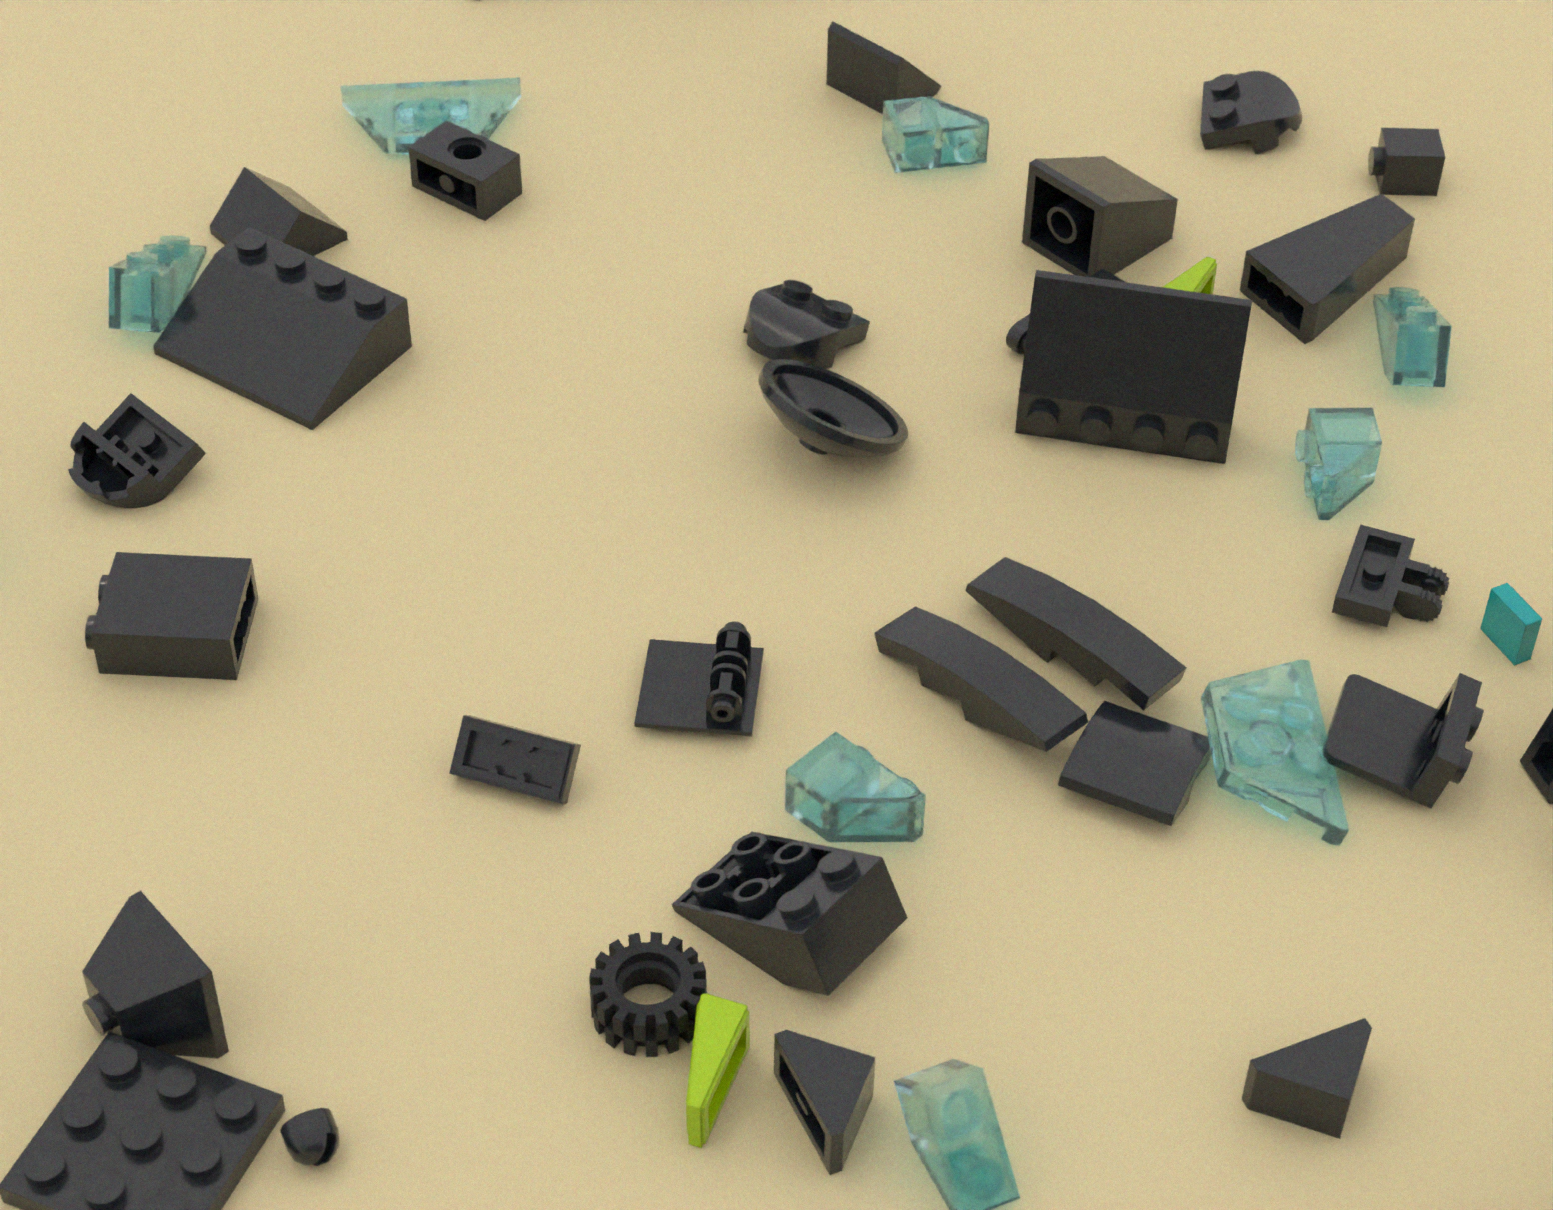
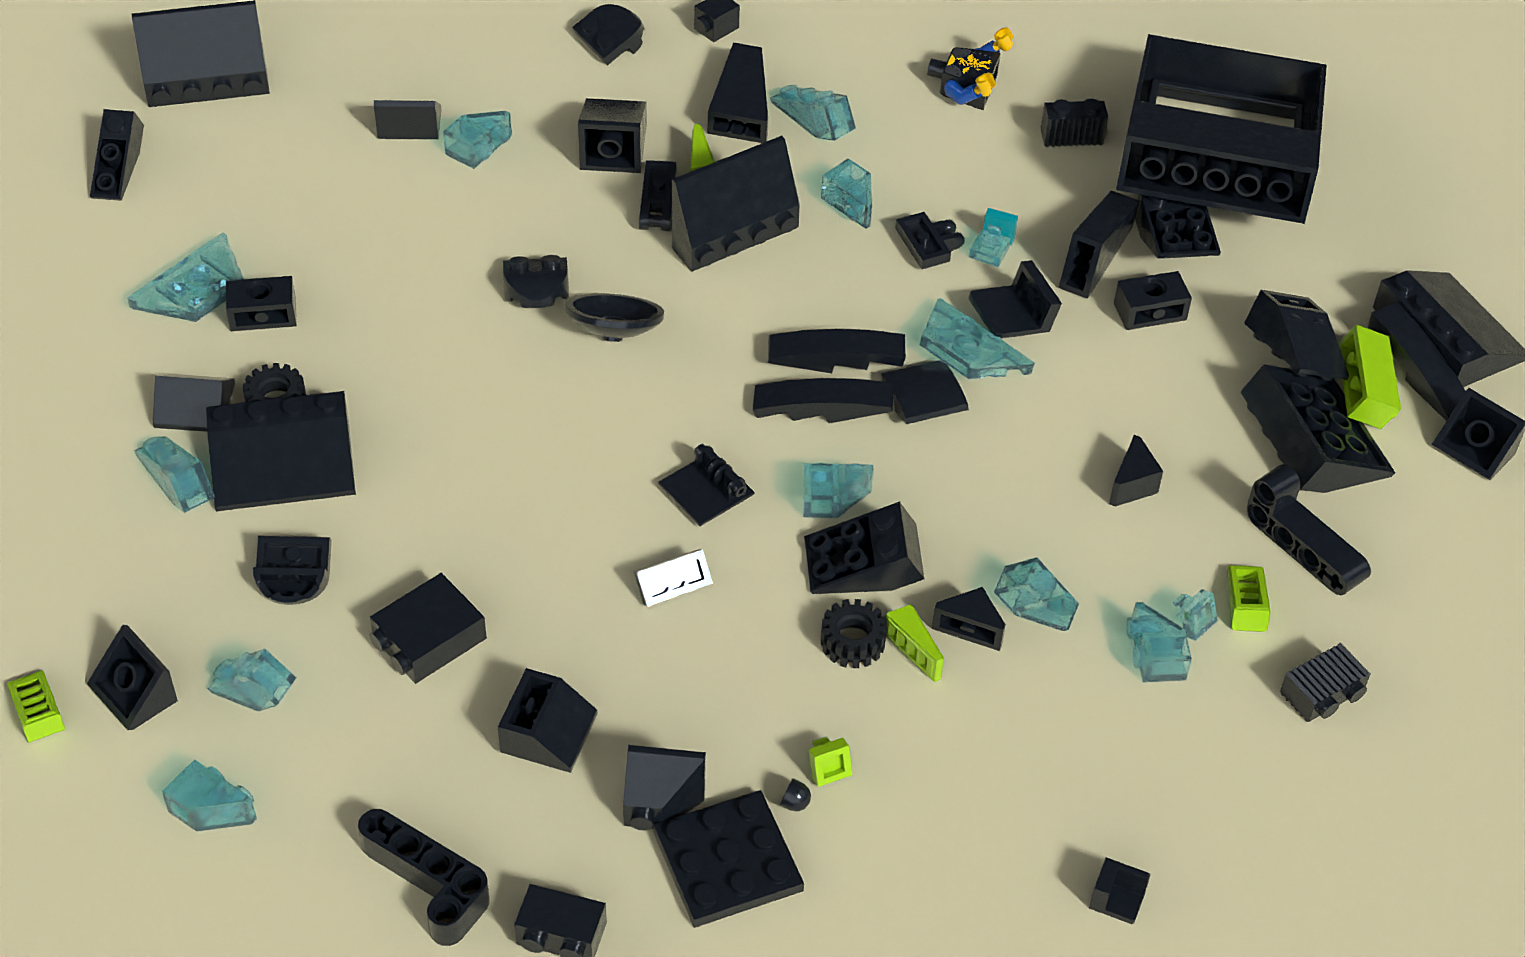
camera: 45 degrees left, 5 degrees up
(145, 810) = (546, 721): none -> black slope
(366, 256) = (273, 380): none -> black tyre
(404, 1127) = (829, 760): none -> lime tile
(1471, 643) = (990, 246): none -> clear light blue tile

